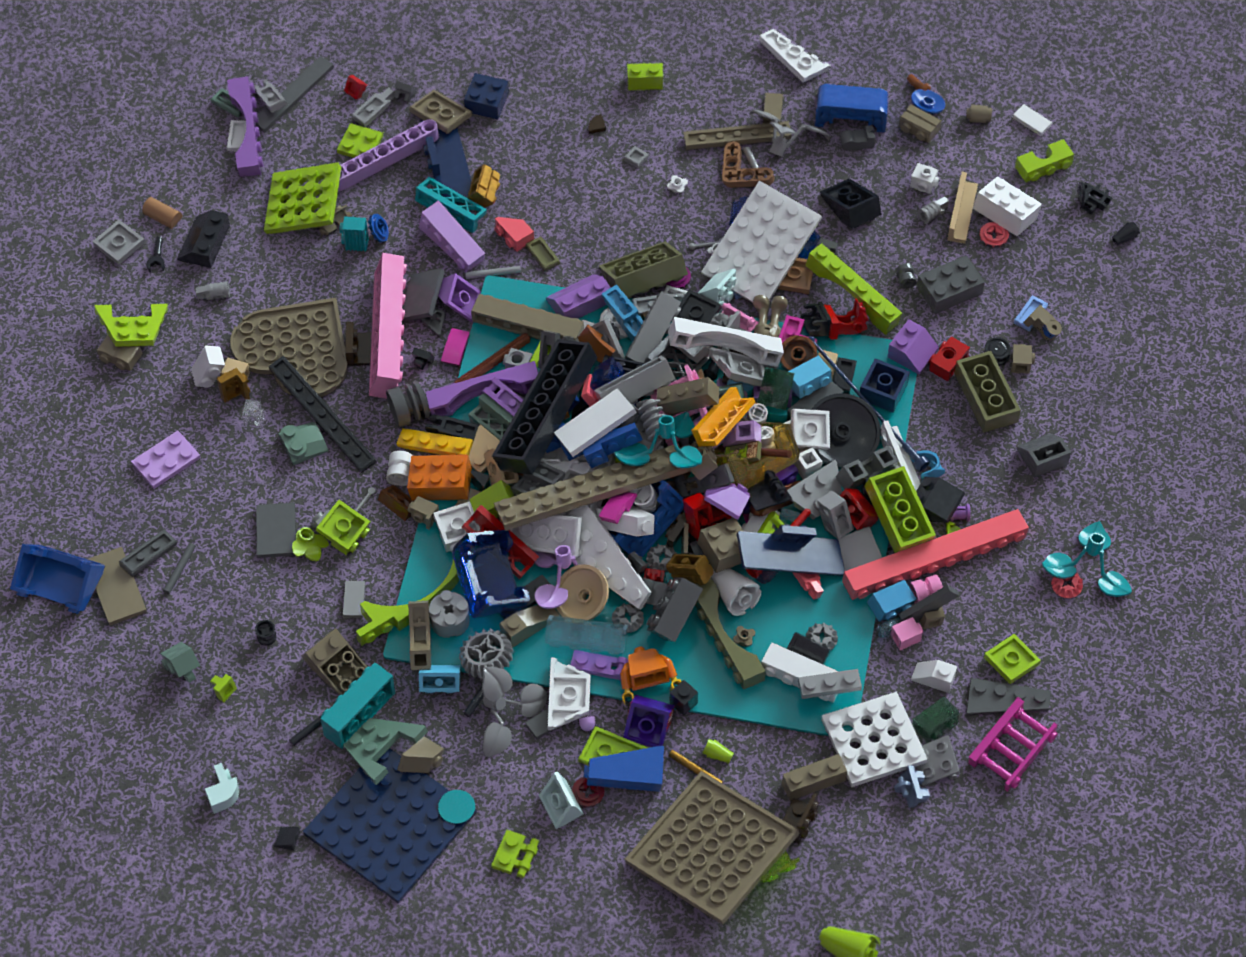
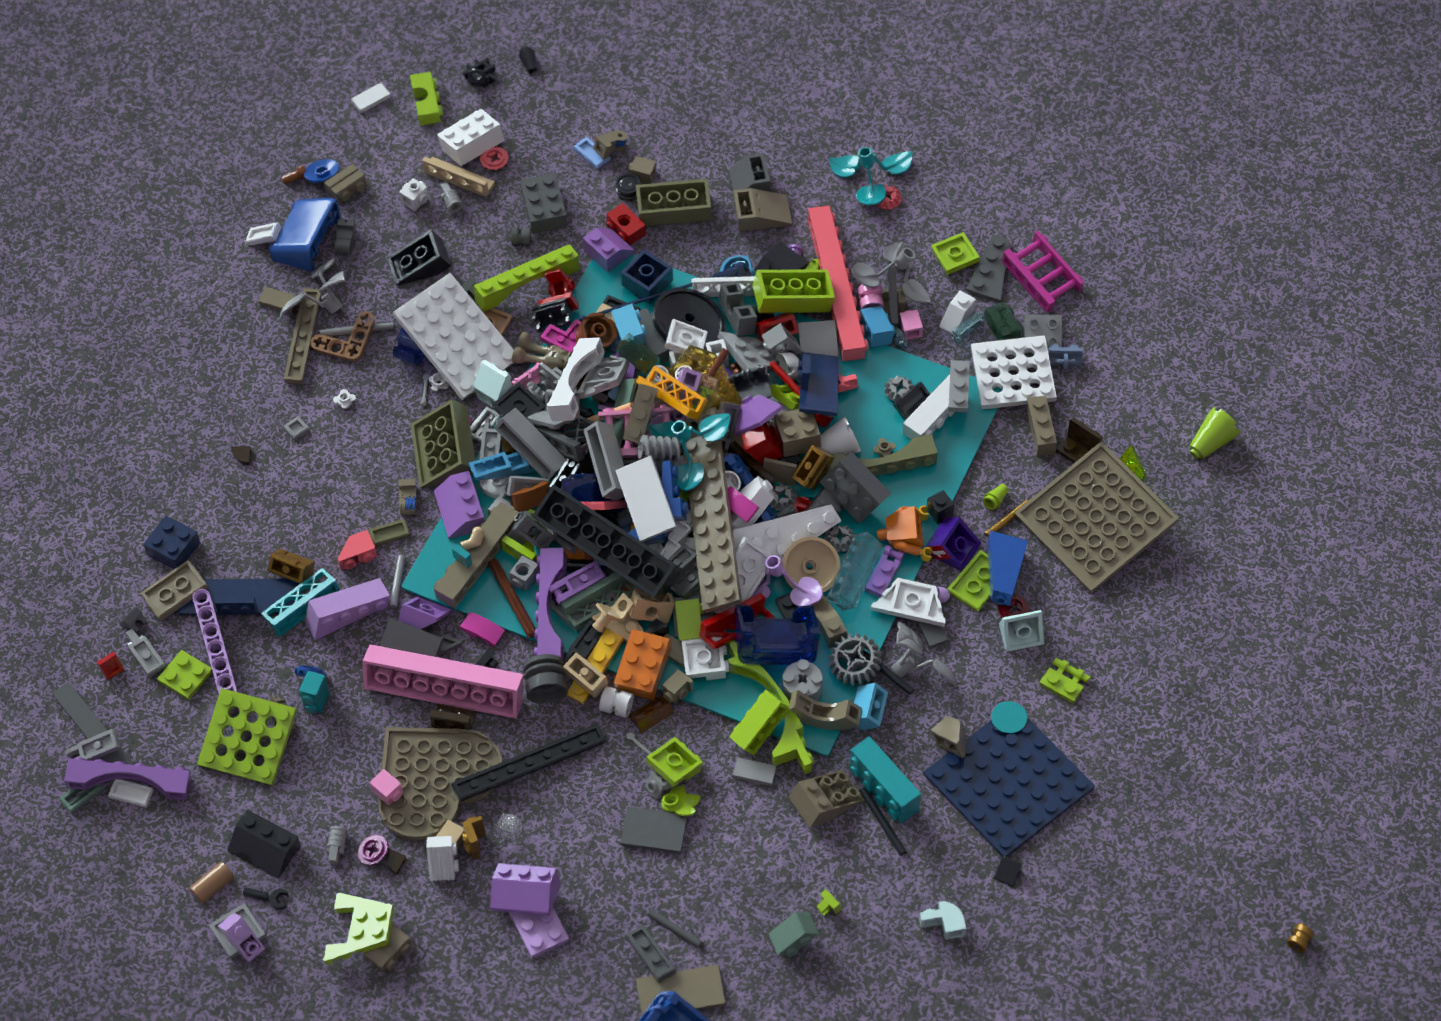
camera: 75 degrees left, 0 degrees up
(106, 240) = (241, 936): none -> lavender slope
(187, 436) = (524, 889): none -> medium lavender slope
(207, 319) = (369, 844): none -> gear
(207, 338) = (395, 860): none -> dark brown tile
(265, 632) = (776, 850): black wheel -> none
(269, 309) = (386, 787): none -> bright pink brick
(302, 442) = (554, 788): sand green slope -> none
(375, 739) = (926, 775): sand green wing -> none
(396, 585) = (759, 722): none -> lime brick
(412, 430) = (585, 675): none -> tan brick
(481, 433) = (612, 613): none -> tan bracket
(513, 302) = (462, 555): none -> teal tile
(535, 309) = (475, 539): none -> tan arm
(581, 257) = (407, 496): none -> dark tan leg
(645, 76) = (200, 397): lime brick -> none
(792, 56) = (229, 265): white wing -> none
(819, 523) = (789, 364): none -> white hair
(839, 75) = (263, 234): none -> white tile
(920, 687) = (967, 327): none -> clear light blue tile
(979, 114) = (350, 135): dark tan brick -> none
(989, 603) = (899, 257): none -> light grey plant
(1006, 470) = (760, 209): none -> dark tan slope

